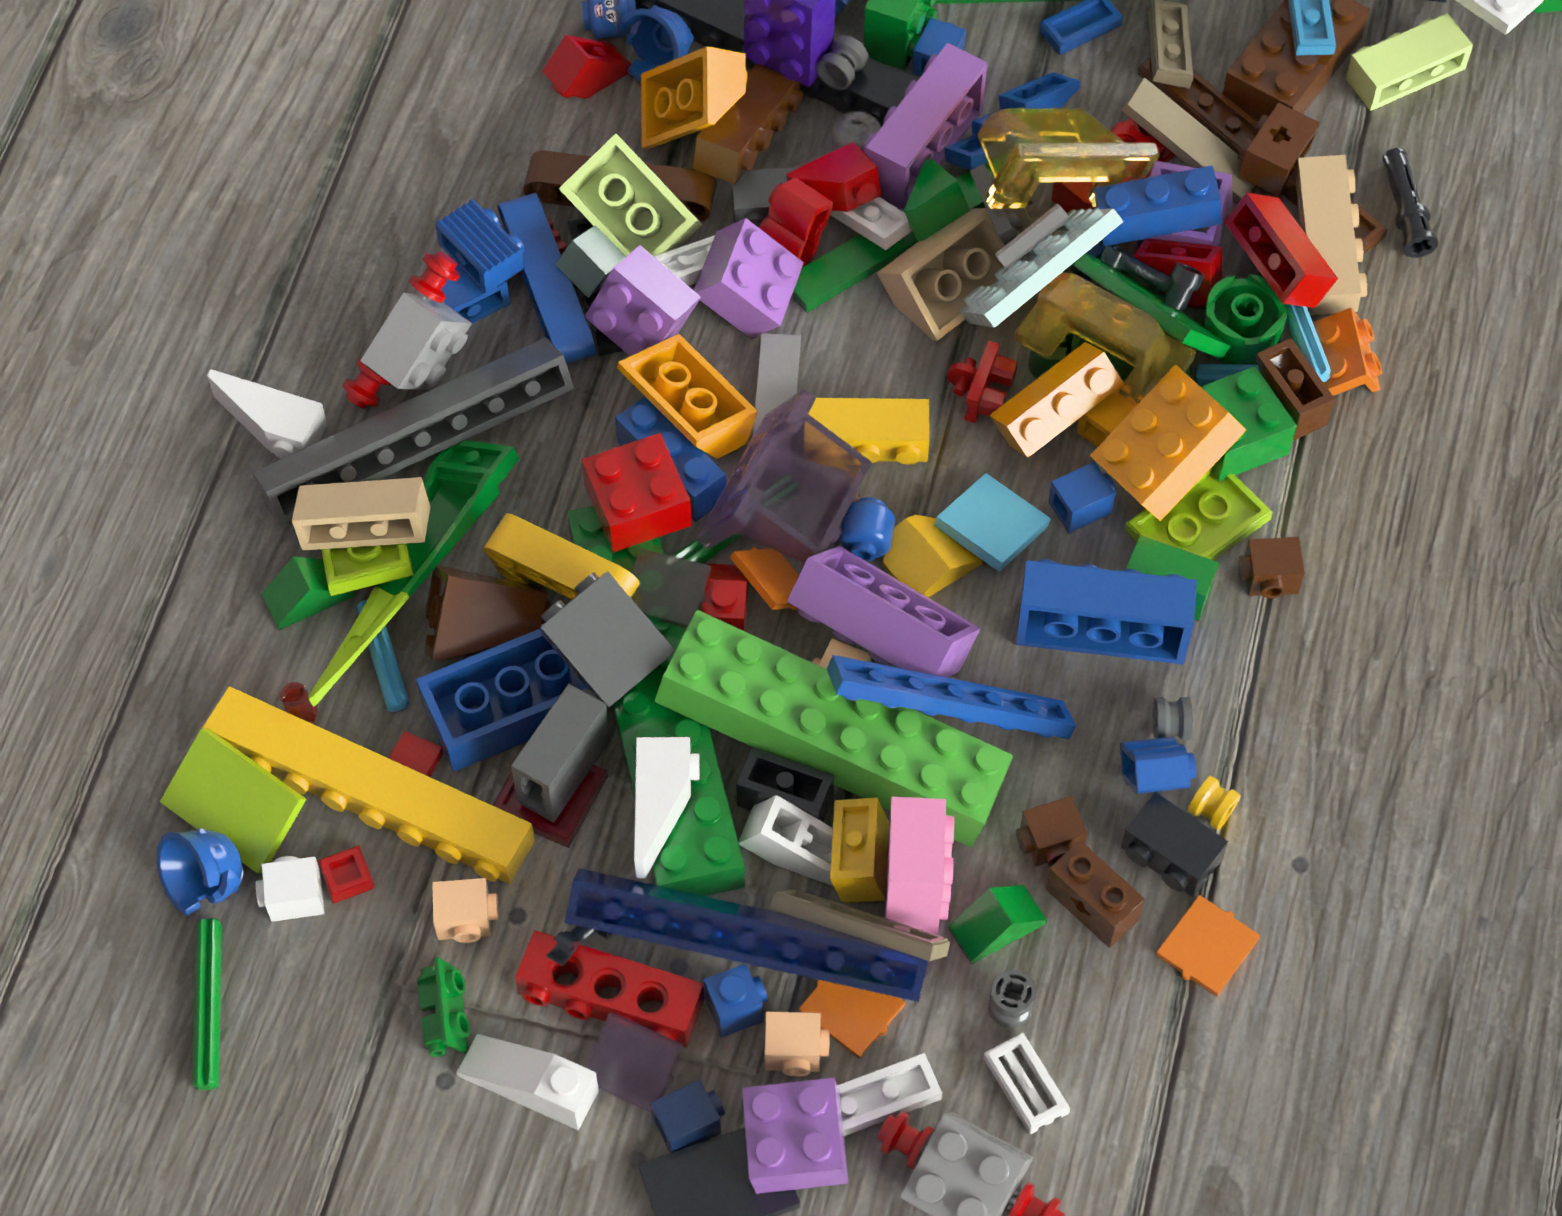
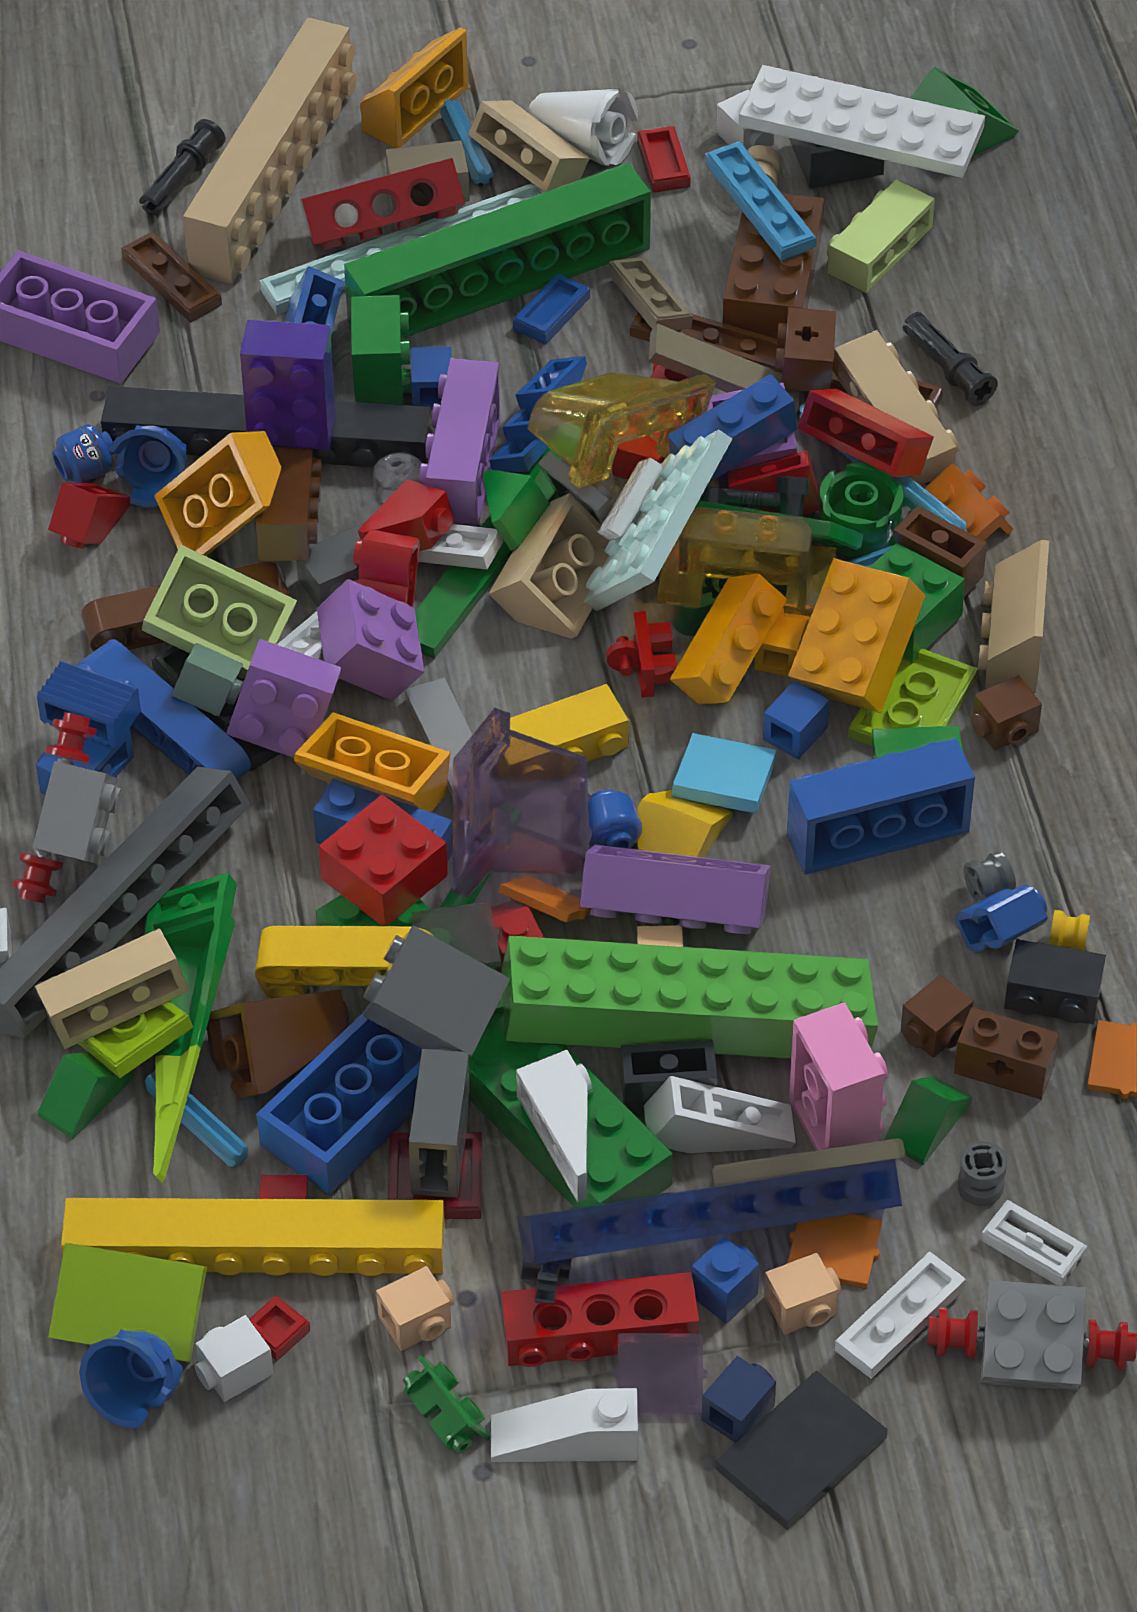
camera: 25 degrees left, 10 degrees down
(207, 1004) = (207, 1499): green axle -> none
(297, 702) = (139, 1184): clear red pin -> none
(794, 1135) = (856, 1364): medium lavender brick -> none
(844, 59) = (353, 413): dark grey wheel -> none
(859, 850) = (769, 1100): yellow panel -> none
(950, 697) = (794, 927): blue plate -> none
(1328, 481) = (1015, 617): none -> tan slope

